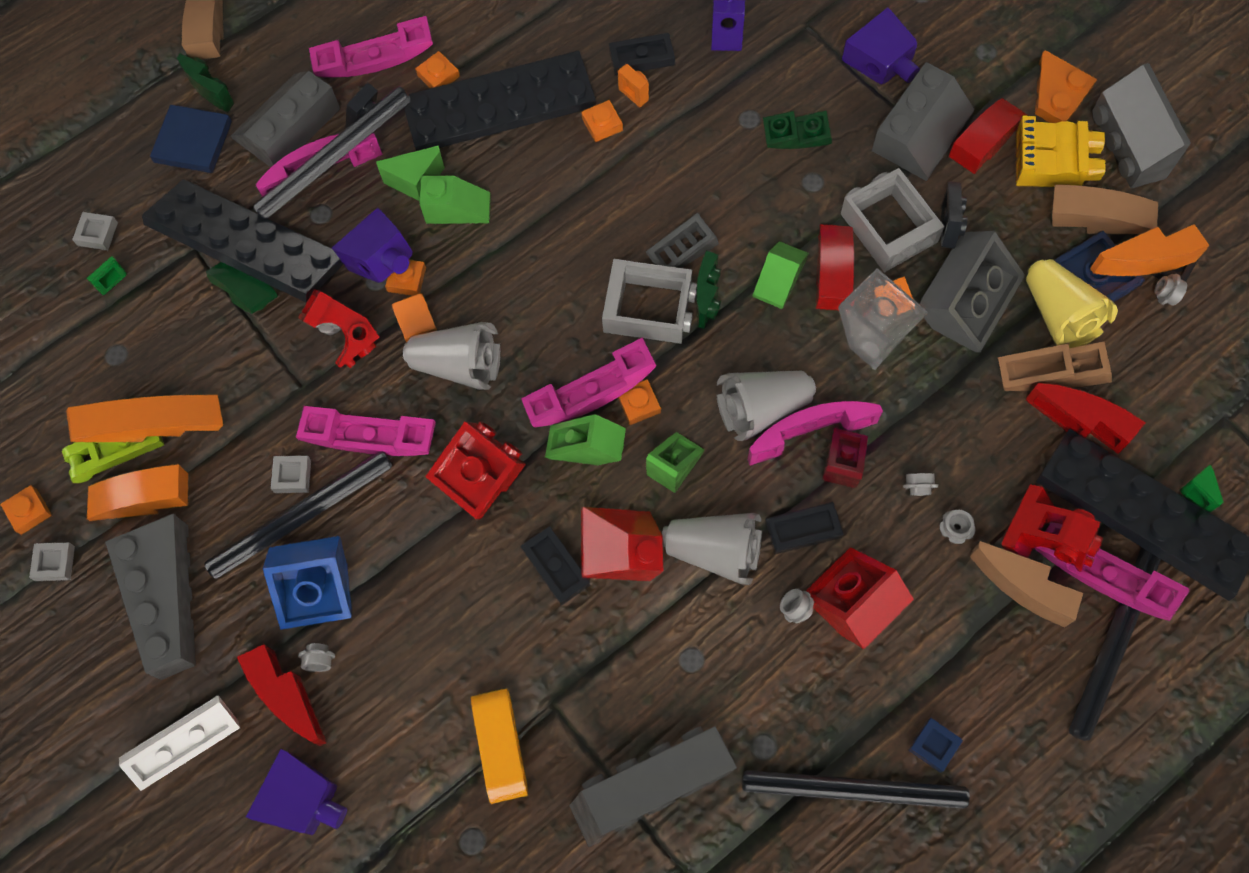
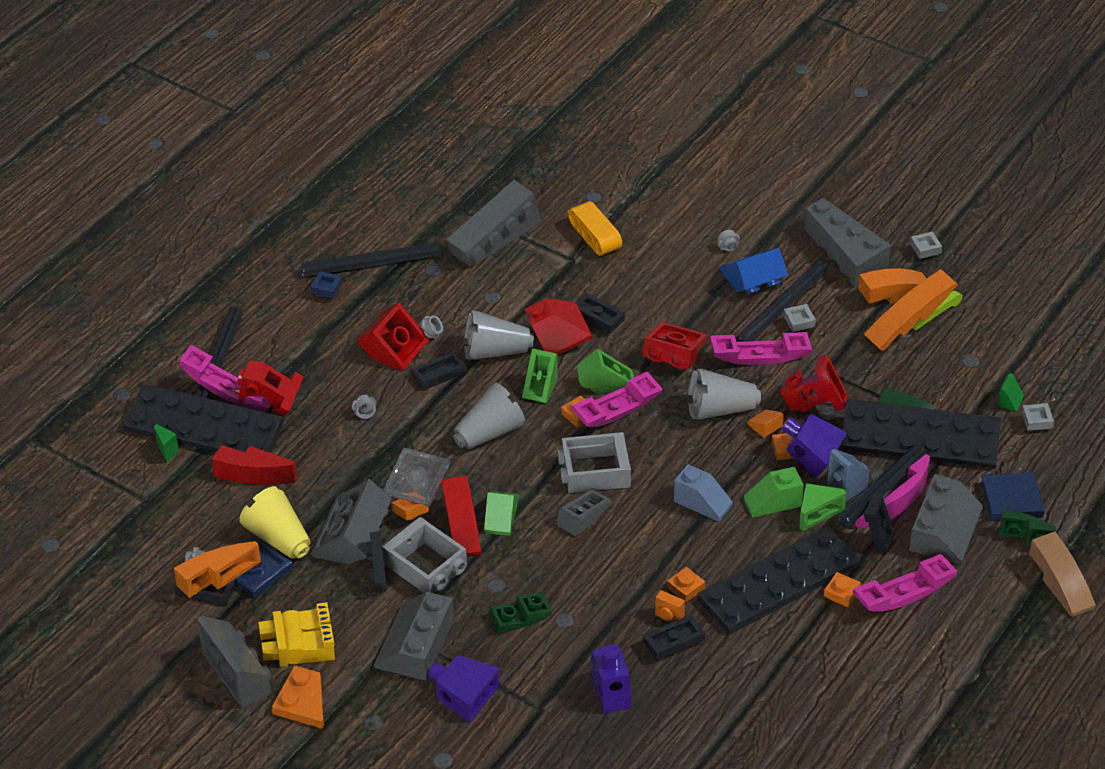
camera: 160 degrees right, 25 degrees down
(26, 509) = (965, 267): orange plate -> none
(179, 743) = (787, 189): white plate -> none
(281, 692) = (739, 218): red slope -> none
(296, 797) = (703, 182): dark purple torso -> none
(357, 192) = (847, 473): none -> sand blue slope
(540, 225) = (701, 493): none -> sand blue slope
(707, 291) = (553, 477): dark green slope -> none
(846, 458) = (420, 399): dark red slope -> none
(851, 414) = (422, 430): dark pink slope -> none
(961, 518) = (333, 390): light grey plate -> none
(986, 135) = (358, 638): red slope -> none
(1028, 583) = (287, 365): medium nougat slope -> none
(1056, 366) = (295, 485): medium nougat slope -> none
(1103, 210) = (255, 598): medium nougat slope -> none

